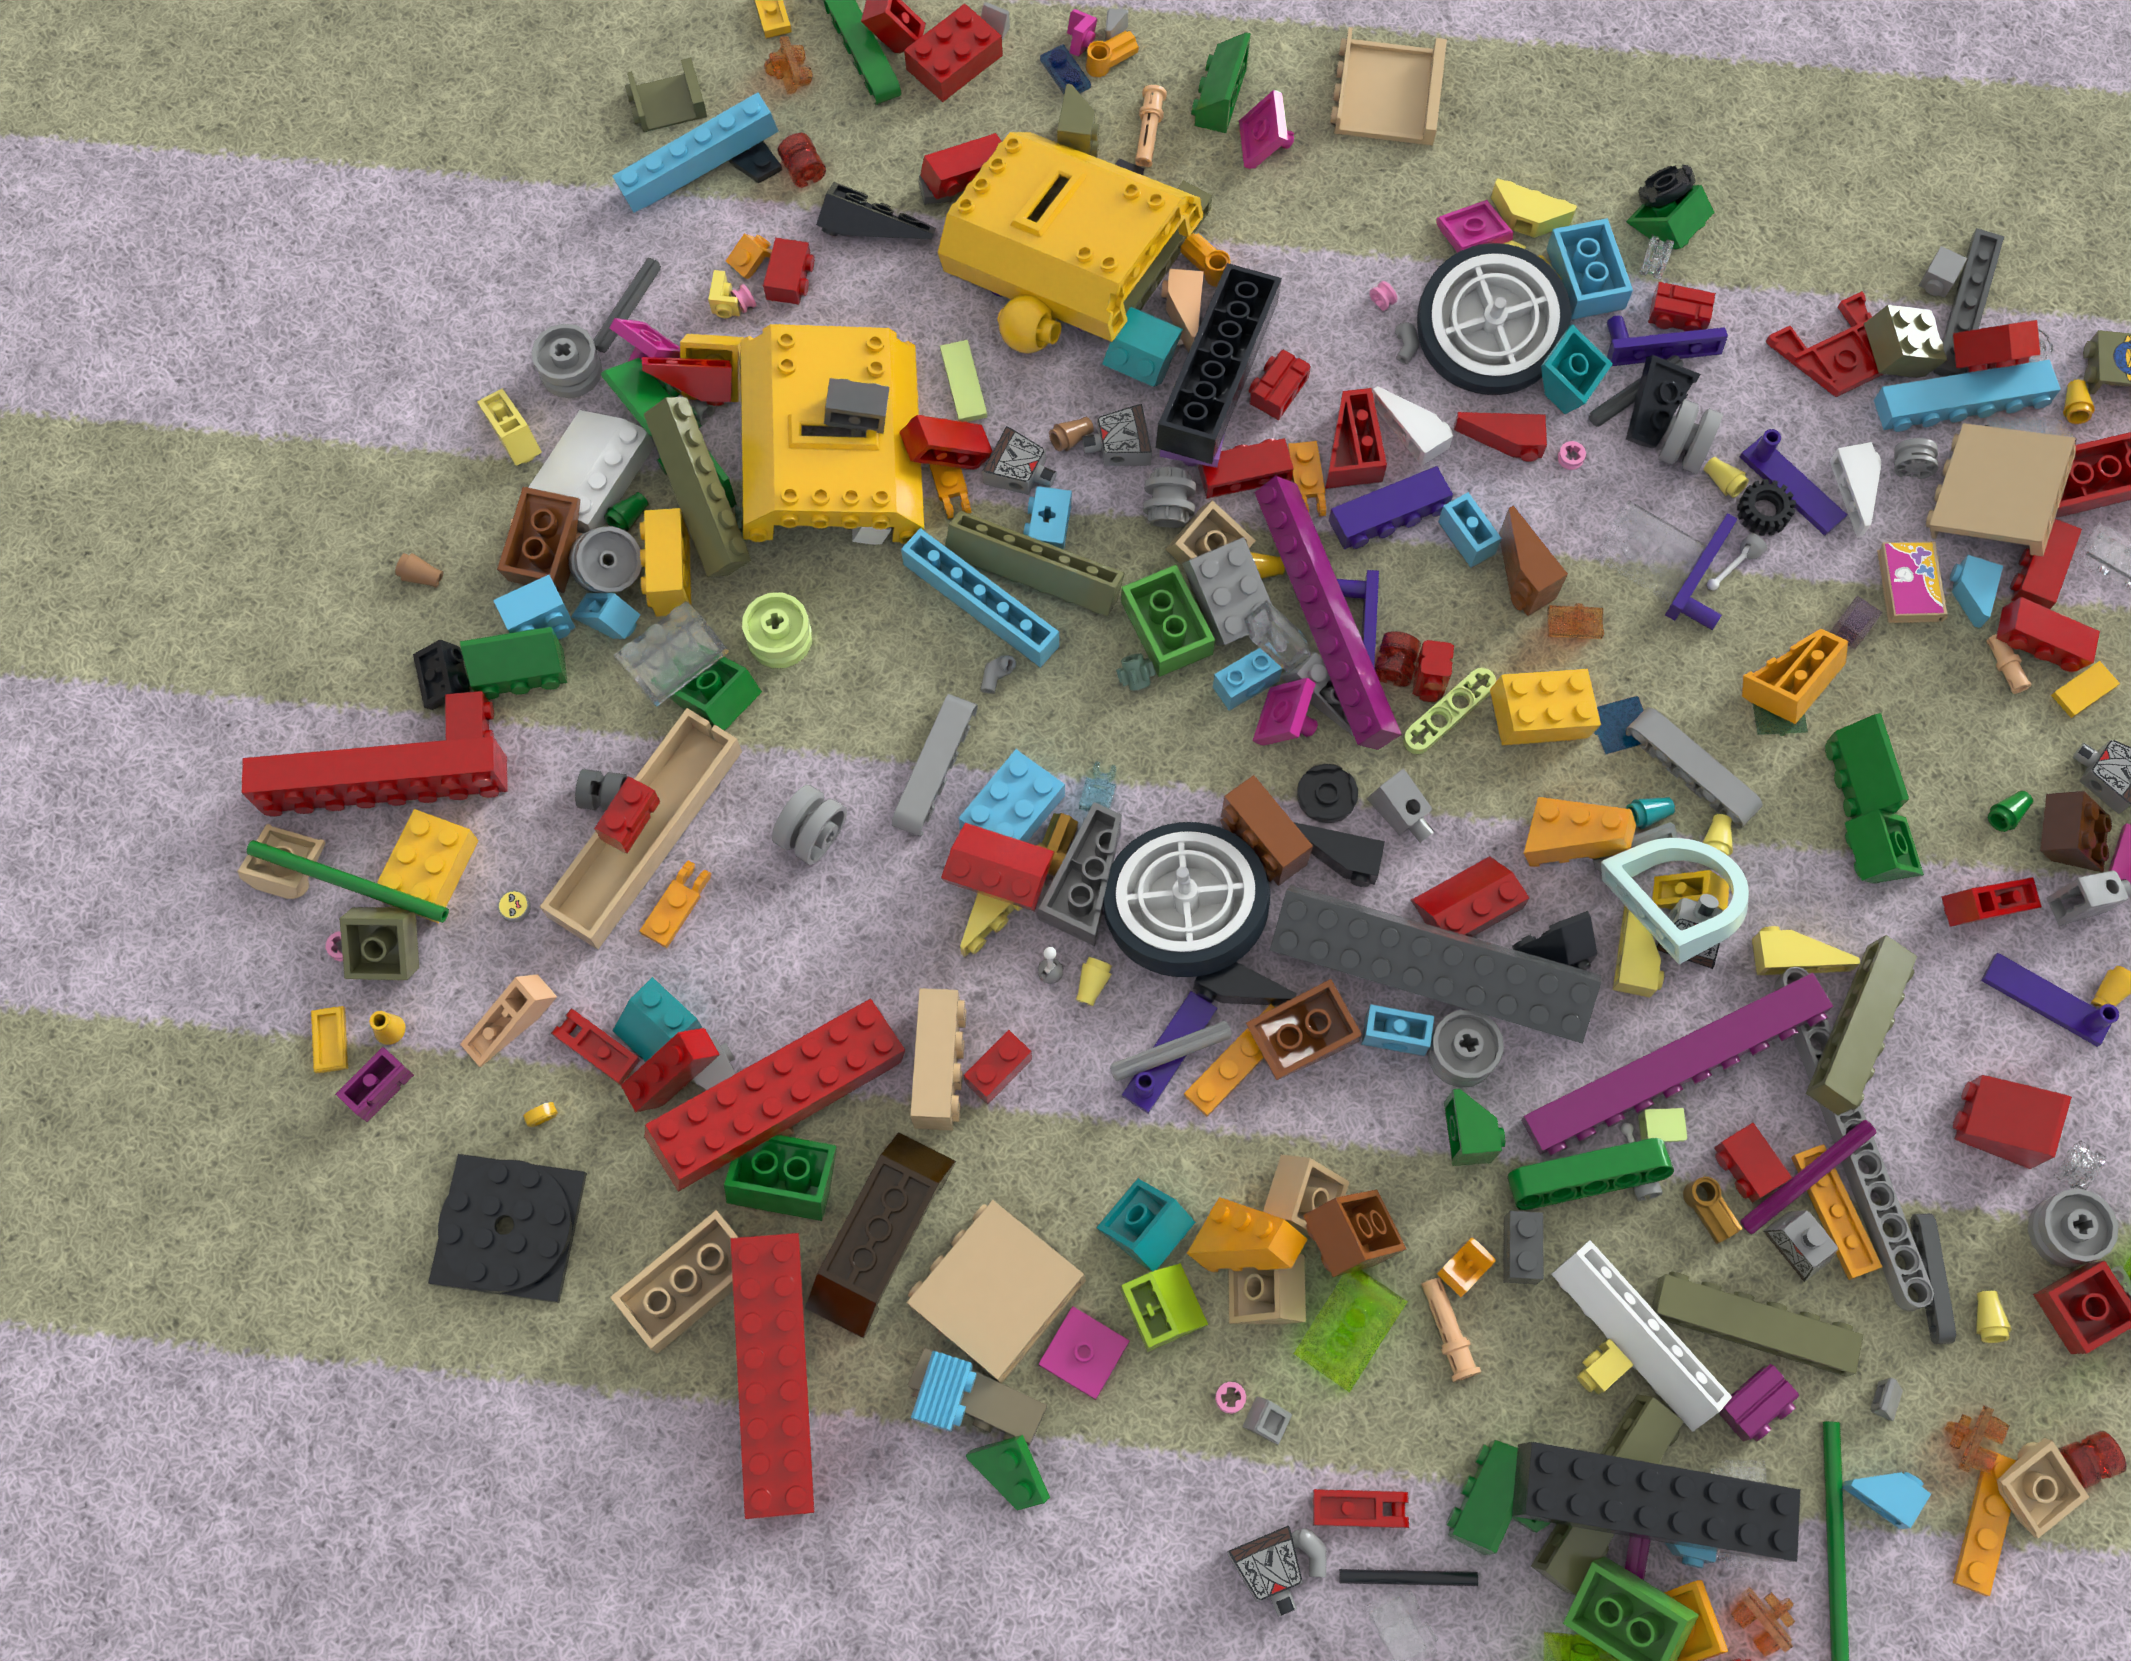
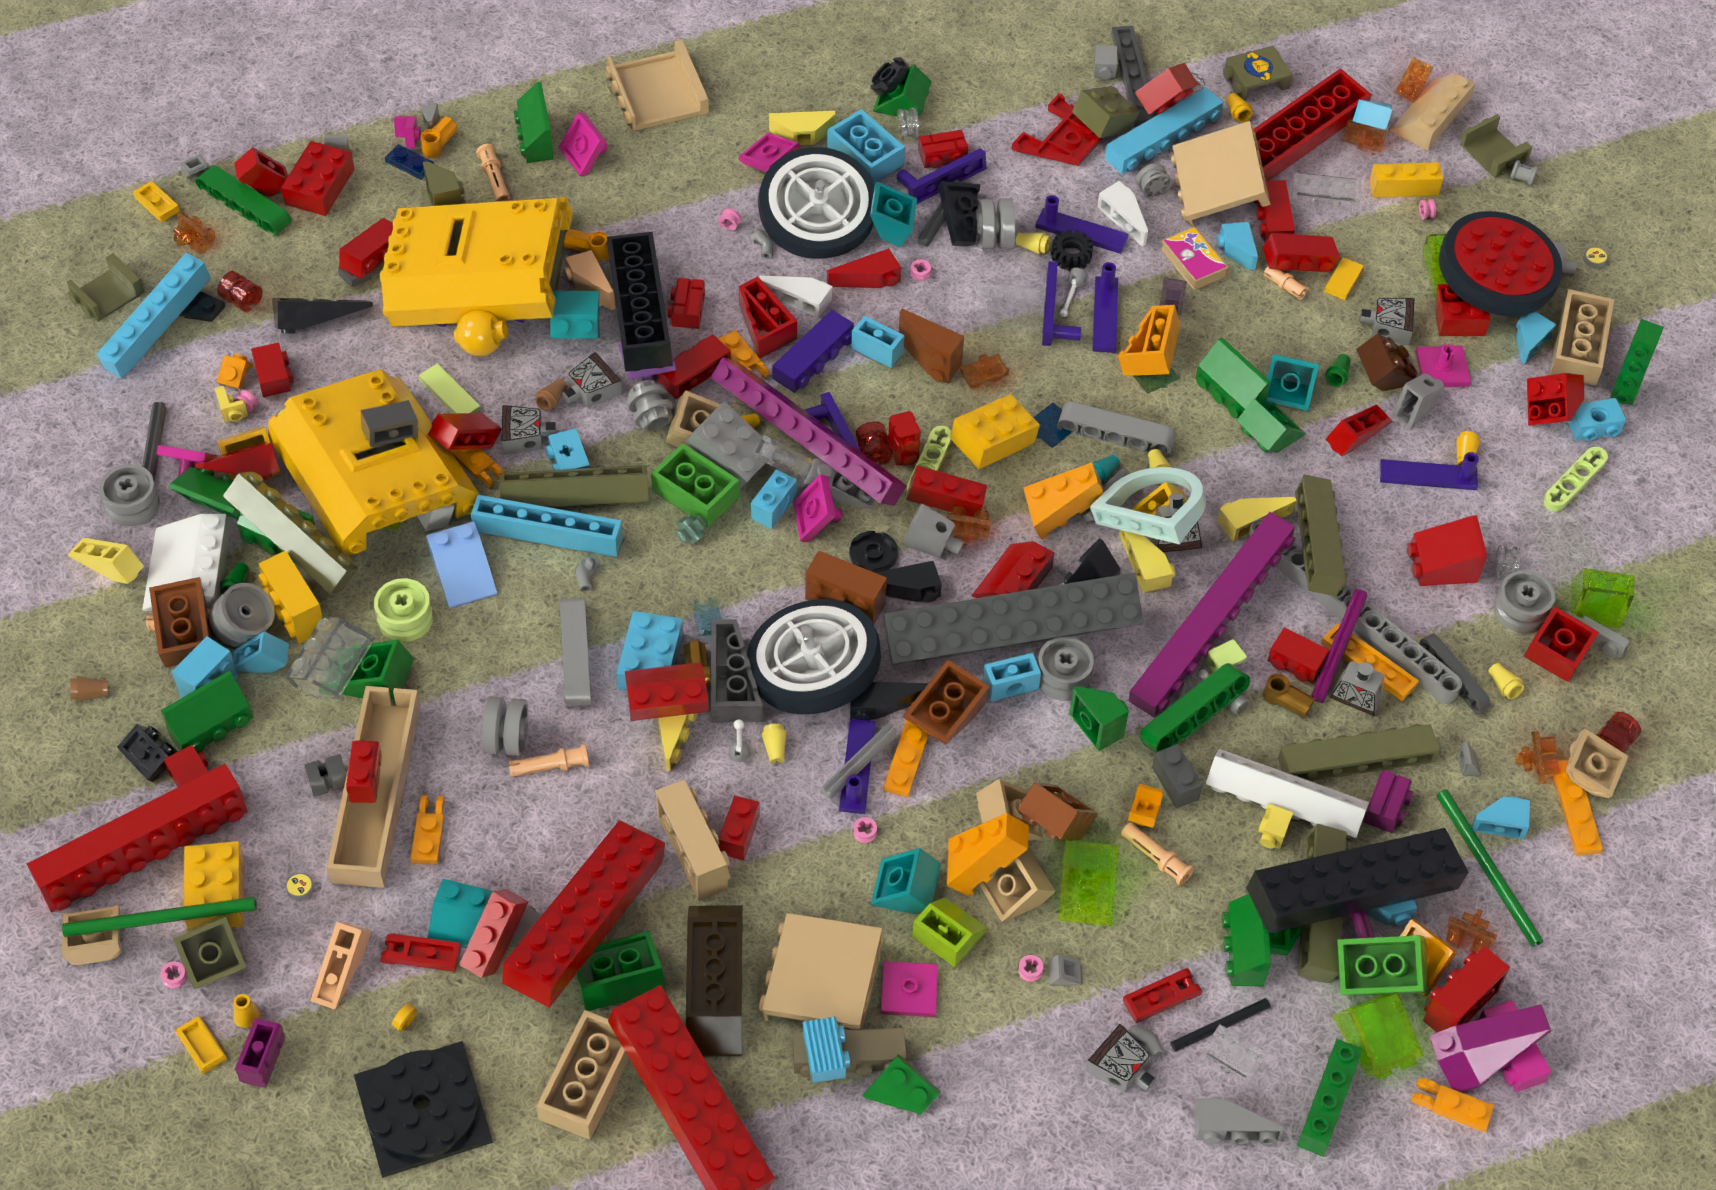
camera: 30 degrees left, 15 degrees down
(854, 889) = (562, 759): none -> light nougat pin
(867, 602) = (461, 564): none -> light blue slope
(1129, 1142) = (867, 823): none -> bright pink bush
(1446, 760) = (945, 491): none -> red brick
(1448, 814) = (970, 527): none -> clear orange hips
(1764, 605) = (1105, 310): none -> dark purple piece
(1942, 800) = (1291, 381): none -> teal slope

